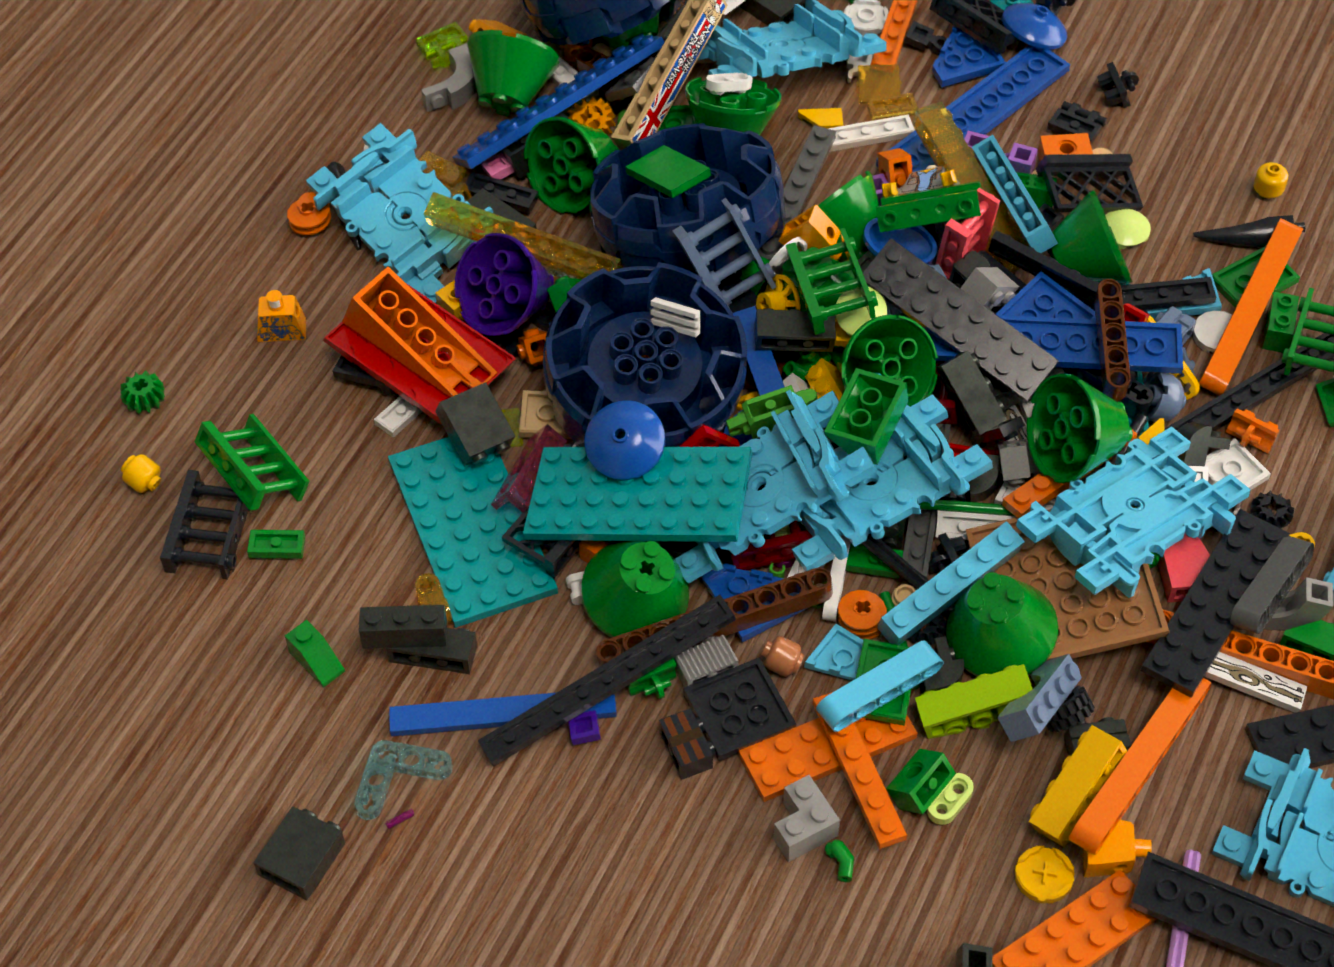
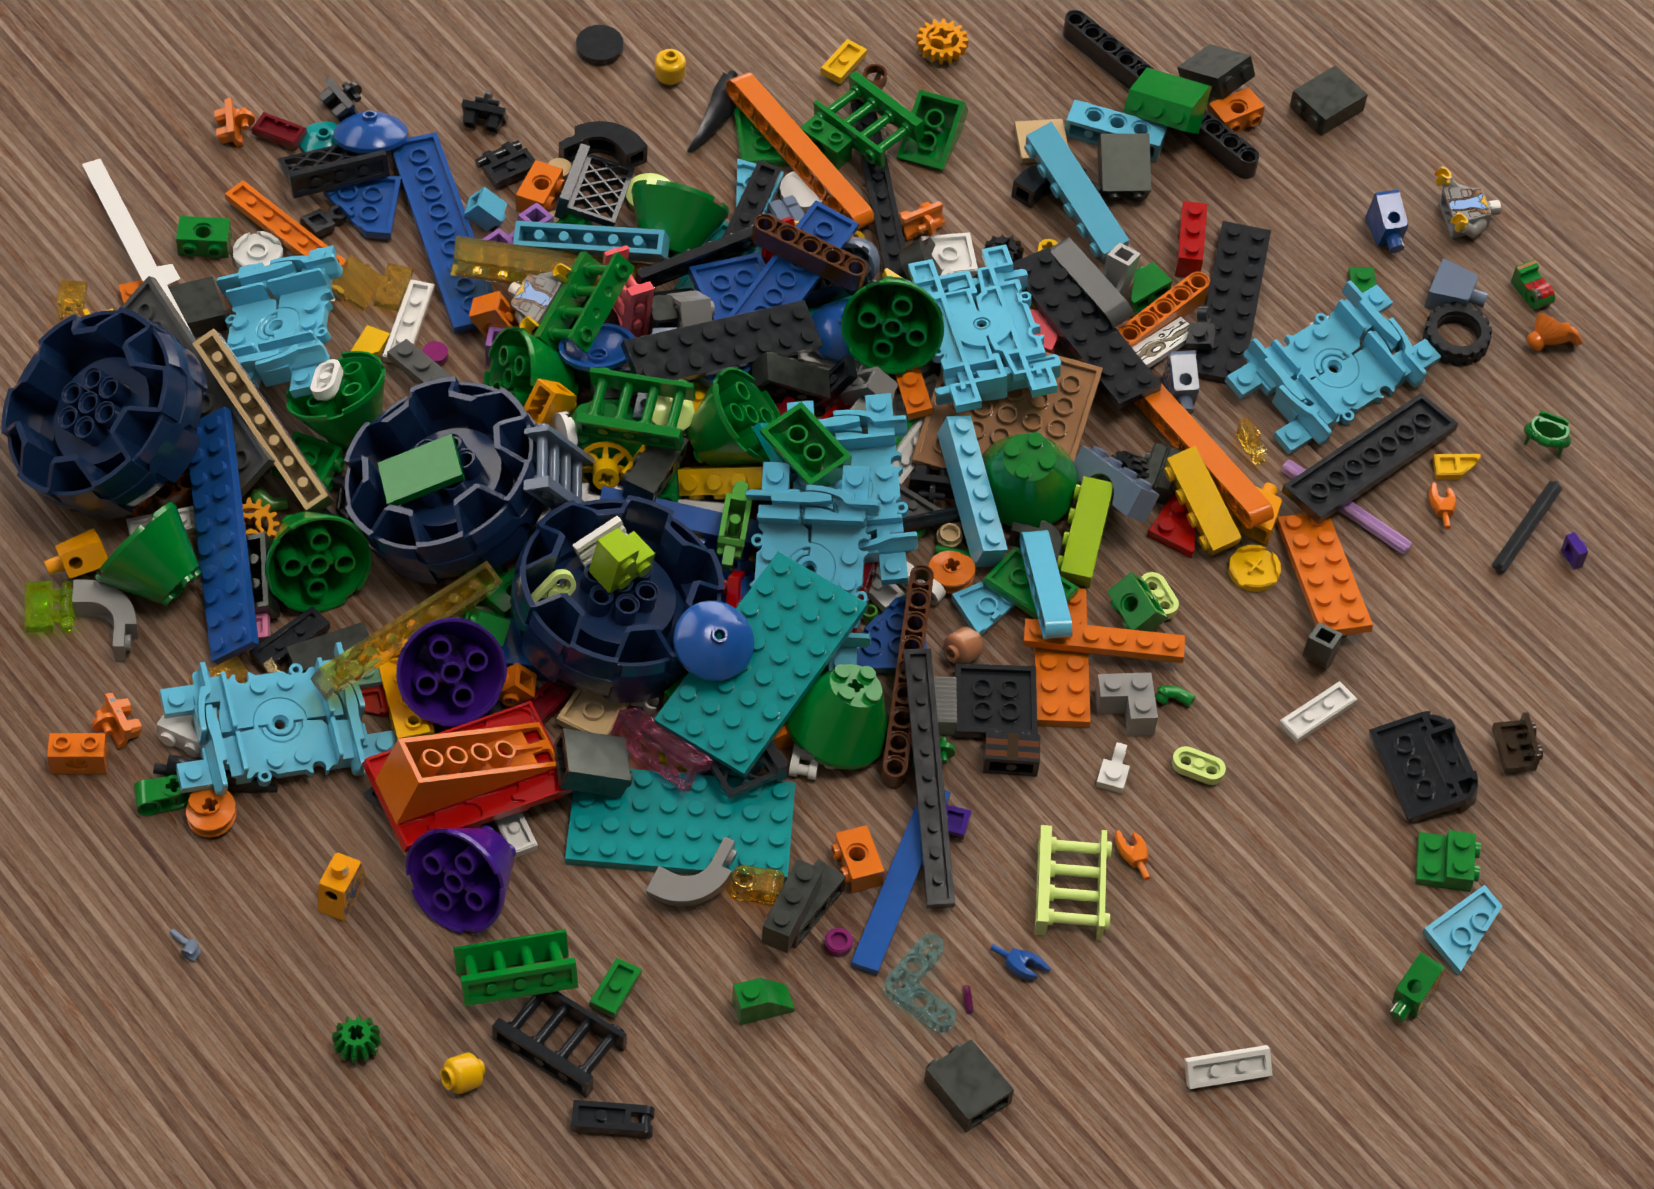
camera: 70 degrees left, 0 degrees up
(145, 594) = (612, 1118): none -> black plate
(182, 259) = (190, 949): none -> sand blue hand
(300, 173) = (159, 795): none -> green piece
(318, 116) = (78, 753): none -> orange brick
(325, 388) = (461, 876): none -> dark purple cone
(358, 122) = (112, 720): none -> orange hips
(393, 543) = (698, 888): none -> light grey arch
(409, 690) = (838, 942): none -> magenta tile
(460, 842) = (1018, 960): none -> blue hand
(496, 681) = (858, 844): none -> orange brick
(525, 376) = (549, 700): none -> dark red plate
(572, 824) = (1047, 892): none -> yellowish green fence
(607, 309) = (550, 587): none -> yellowish green plate
(632, 897) = (1134, 855): none -> orange hand
(654, 334) = (620, 559): none -> lime brick
(717, 841) = (1114, 772): none -> white plate
(768, 914) = (1199, 765): none -> yellowish green plate
(846, 162) = (437, 352): none -> magenta tile
(1012, 126) = (485, 209): none -> medium azure brick
(1035, 780) = (1174, 528): none -> red wing
(1155, 170) = (606, 138): none -> black arch
(1201, 804) = (1249, 438): none -> clear yellow plate
(1219, 714) = (1182, 378): none -> torso
(1259, 129) = (599, 45): none -> black tile
(1293, 709) = (1202, 333): none -> black plate

